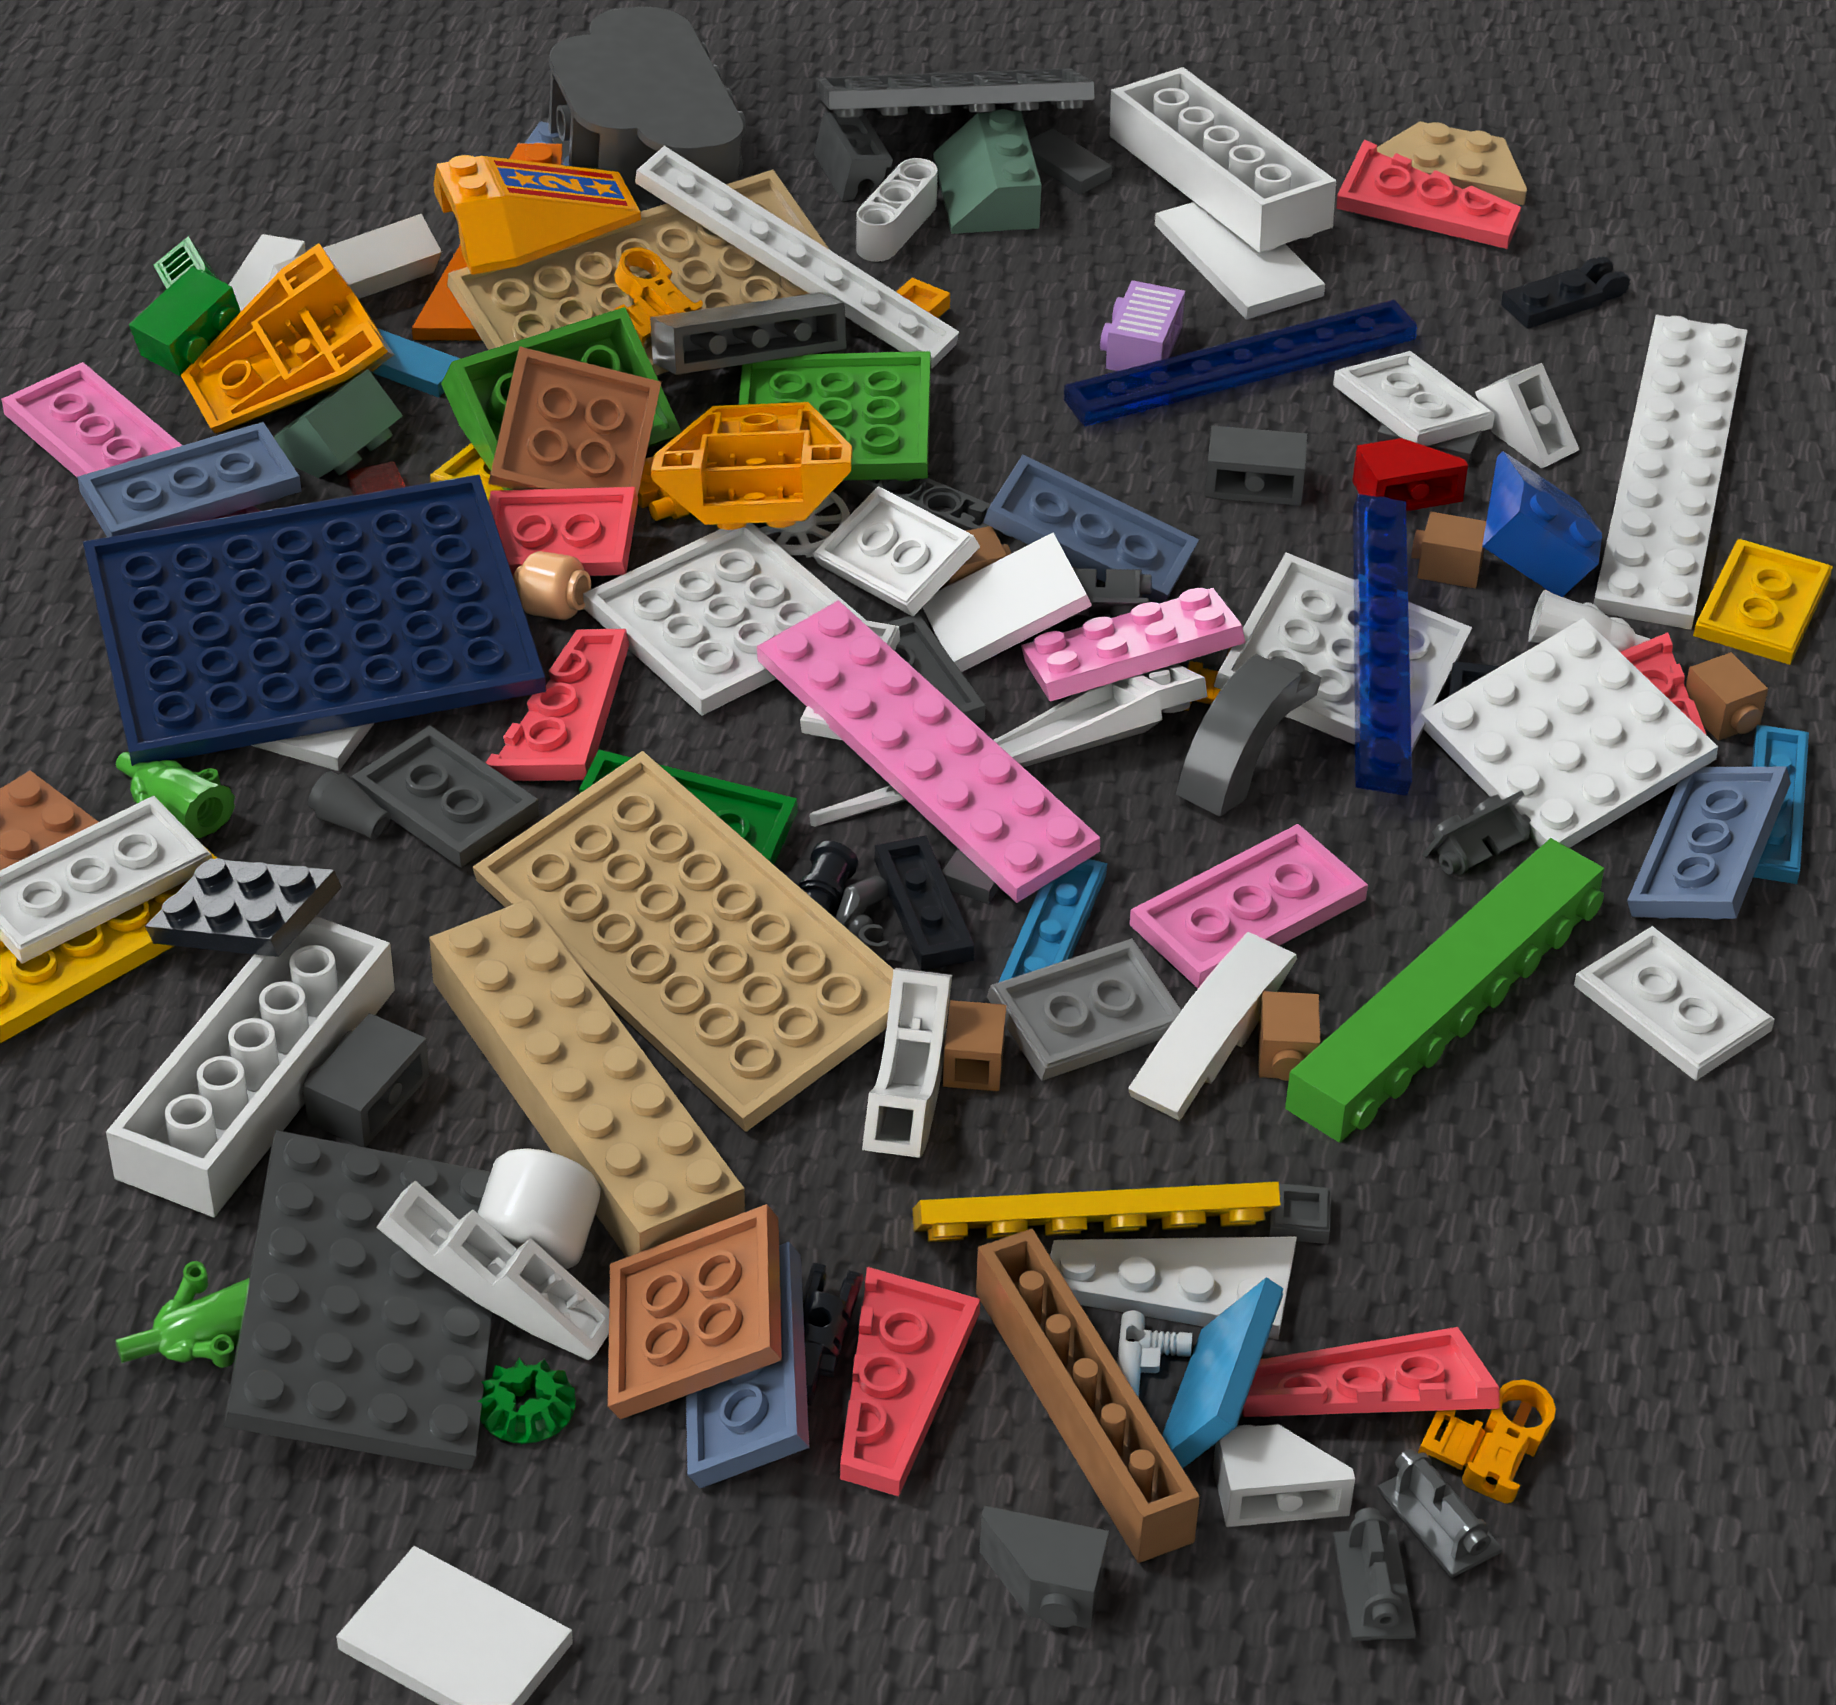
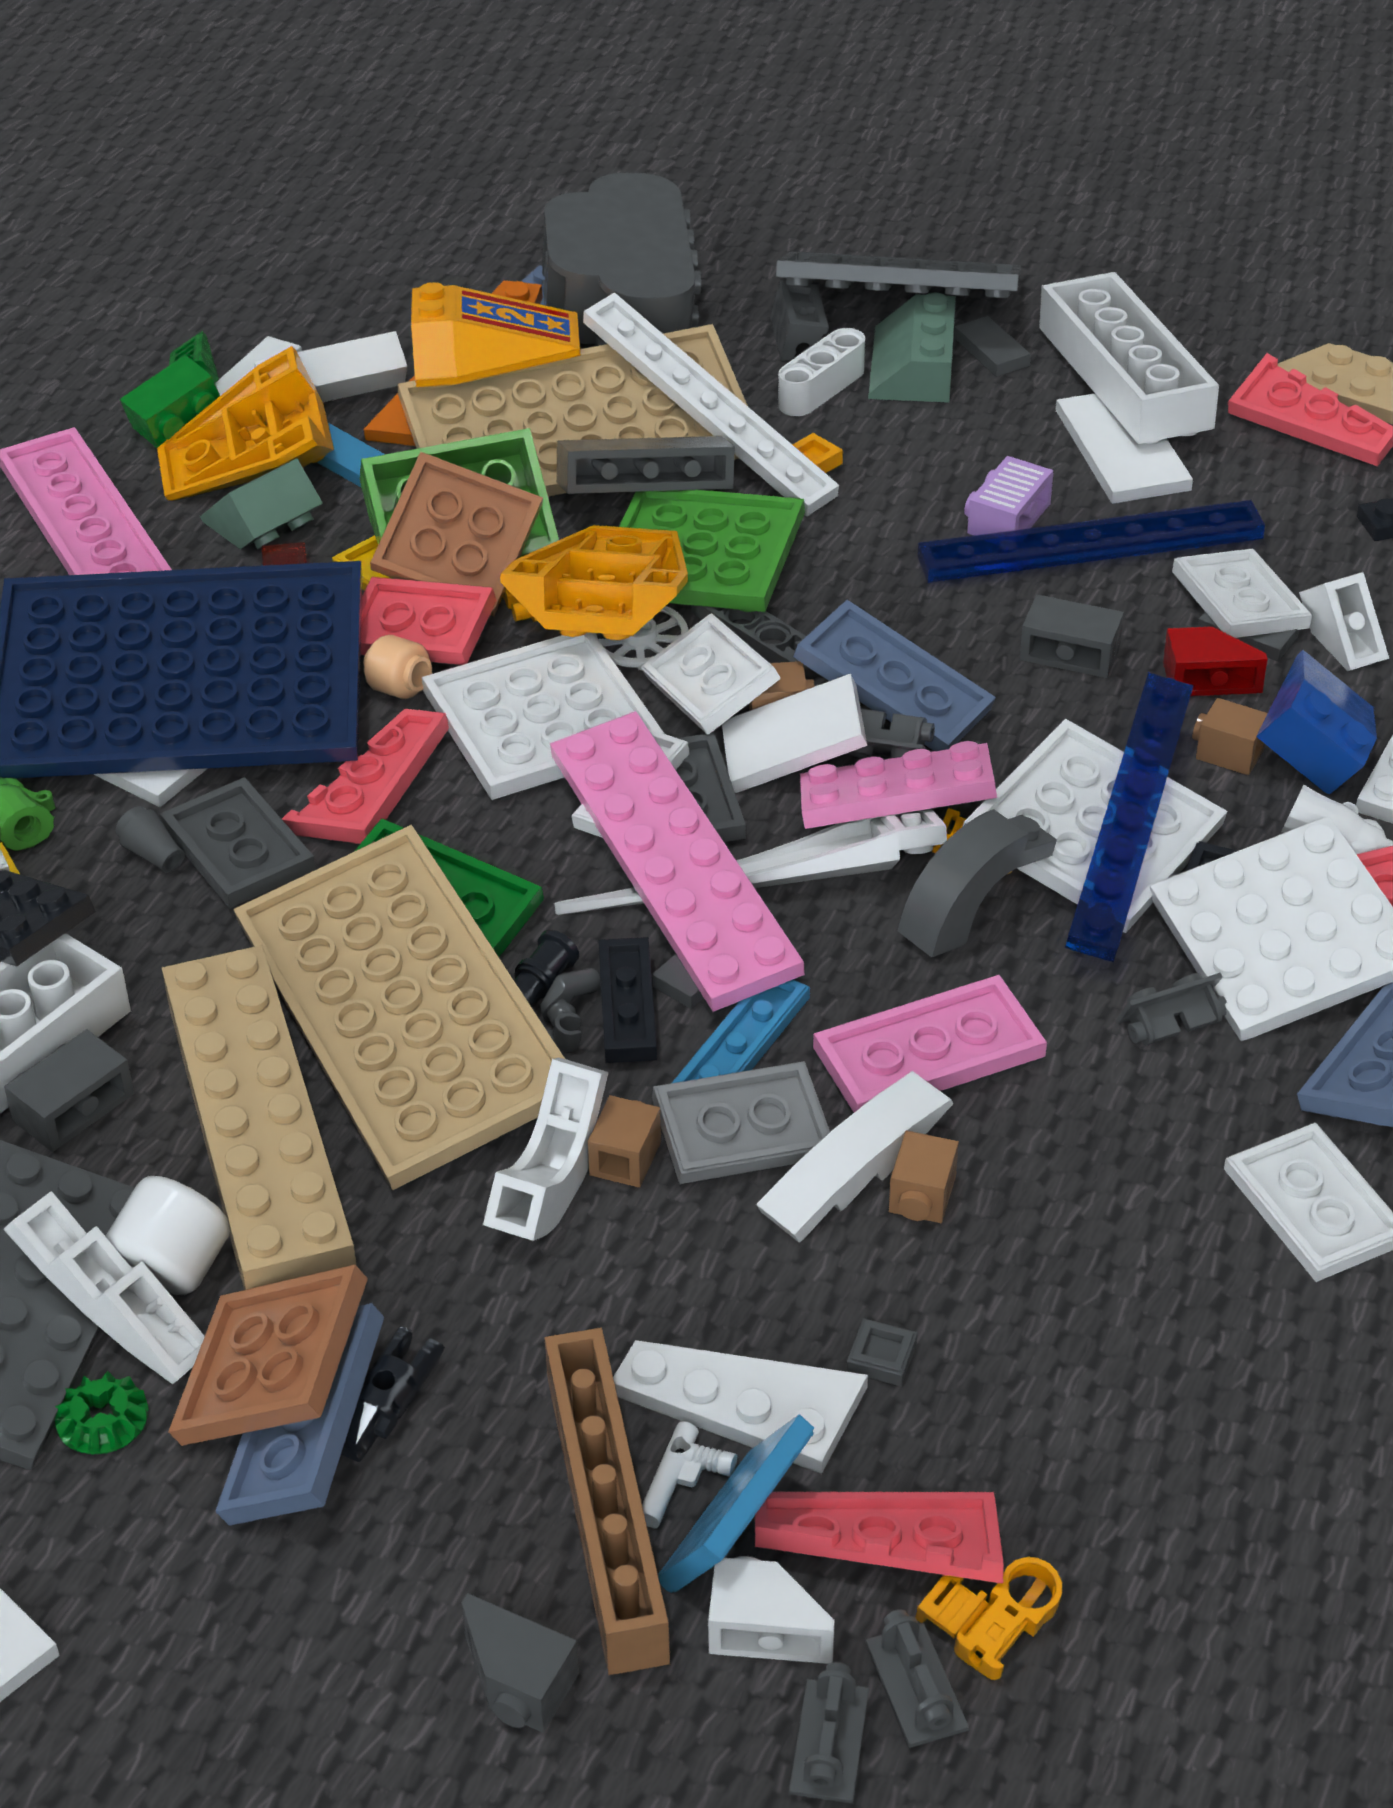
camera: 15 degrees right, 0 degrees up
(190, 482) = (118, 539): sand blue plate -> none
(653, 295) = (567, 422): light orange piece -> none
(900, 1373) = (456, 1435): coral wing -> none
(1117, 1209) = (653, 1316): yellow plate -> none
(1444, 991) = (1088, 1155): bright green brick -> none

